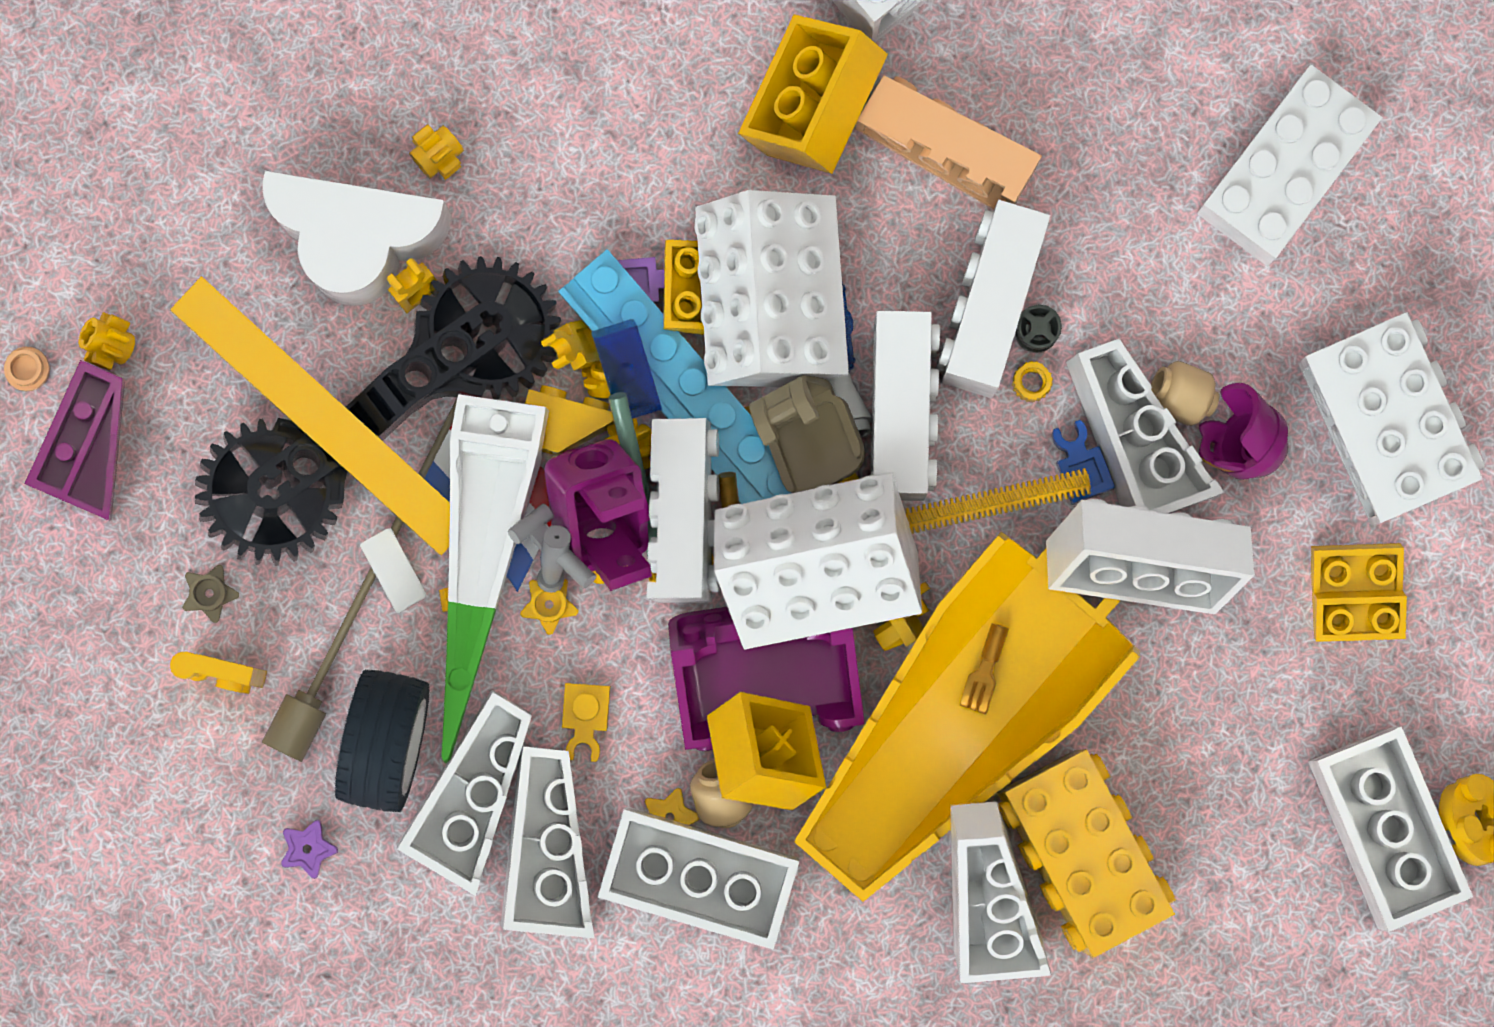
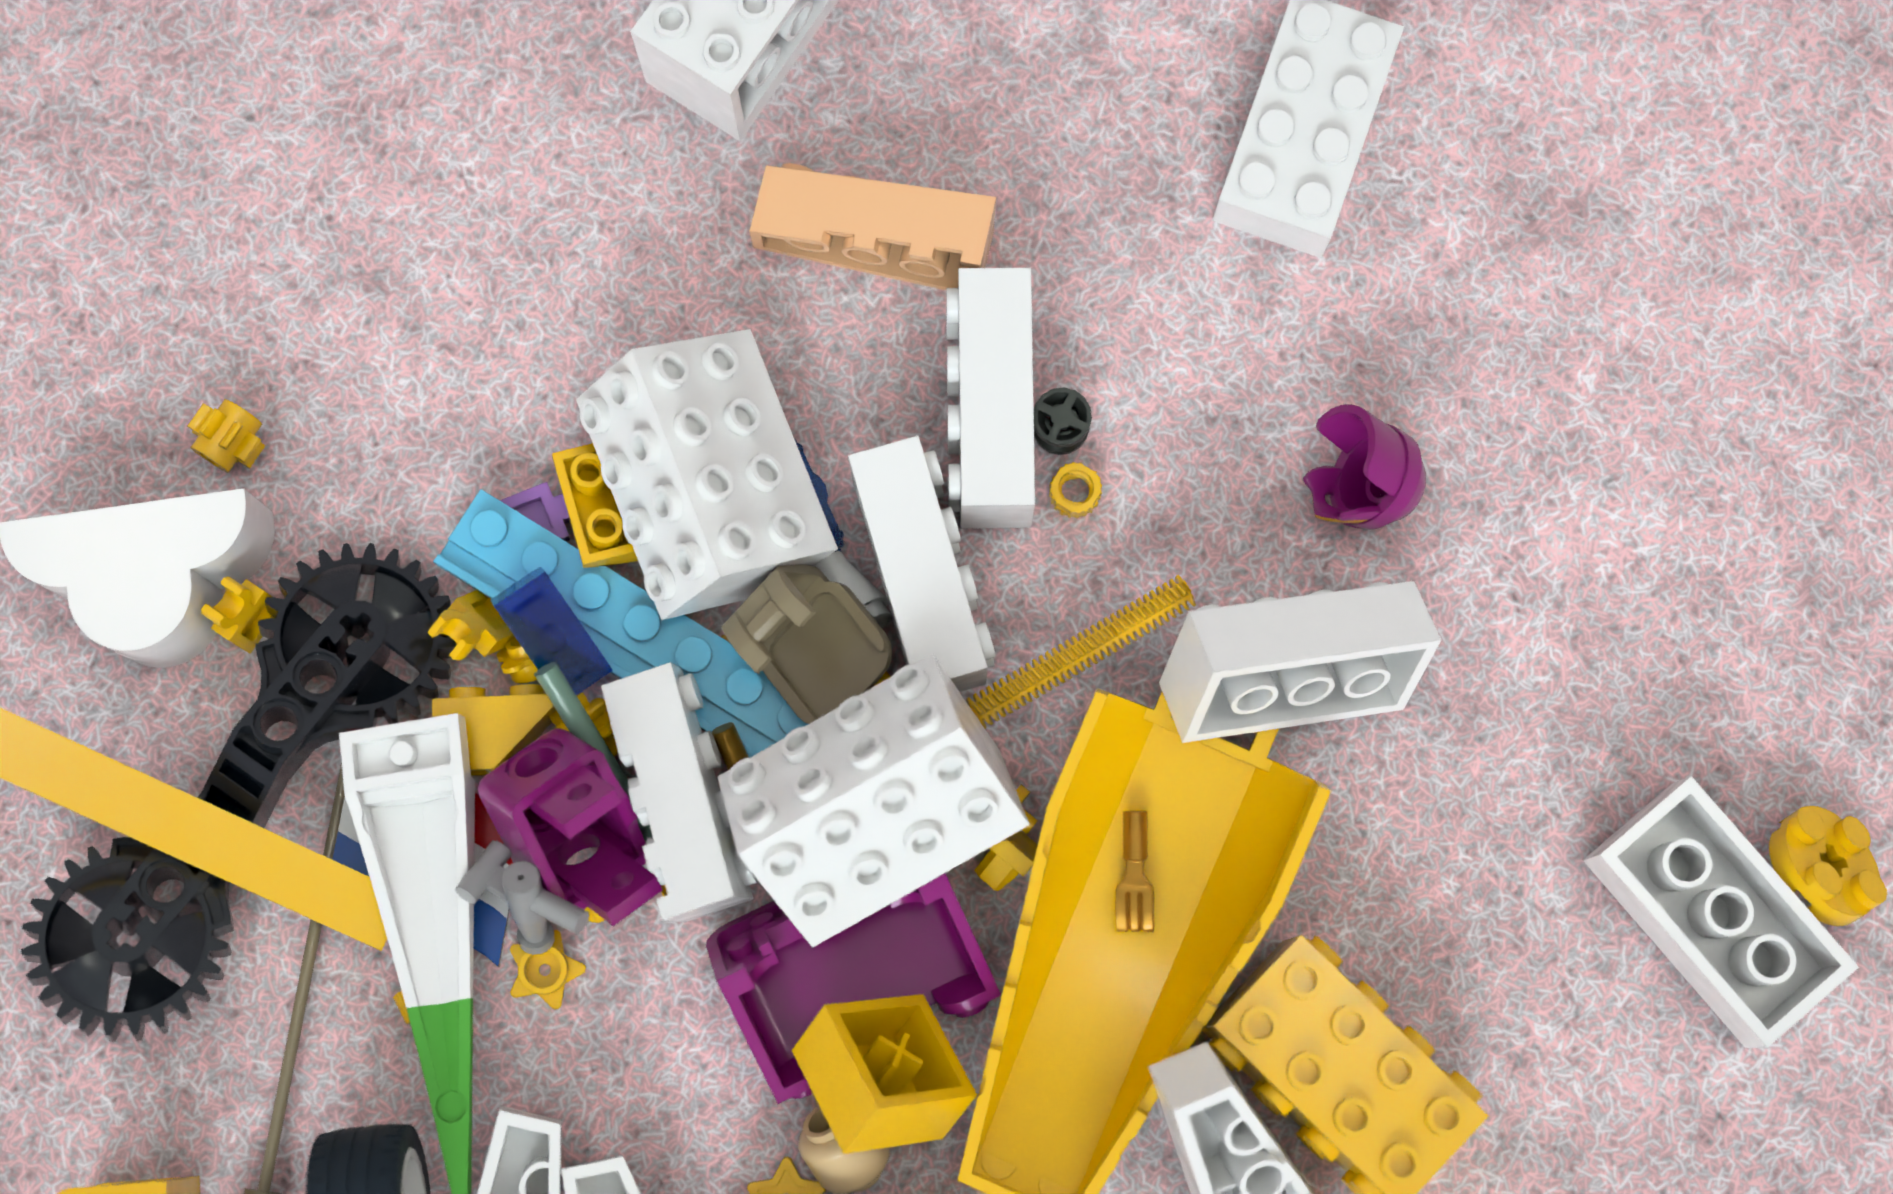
camera: 20 degrees left, 5 degrees down
(221, 593) = (76, 1092): dark tan plate -> none
(393, 570) = (326, 990): white sticker -> none
(585, 711) = (633, 1095): yellow plate -> none
(813, 93) = (683, 214): yellow brick -> none
(1079, 458) = (1166, 565): blue plate -> none
(1136, 434) = (1226, 512): white wedge -> none
(1185, 392) = (1271, 444): tan head -> none
(1358, 592) = (1572, 625): yellow slope -> none
(1391, 418) = (1542, 391): white brick -> none

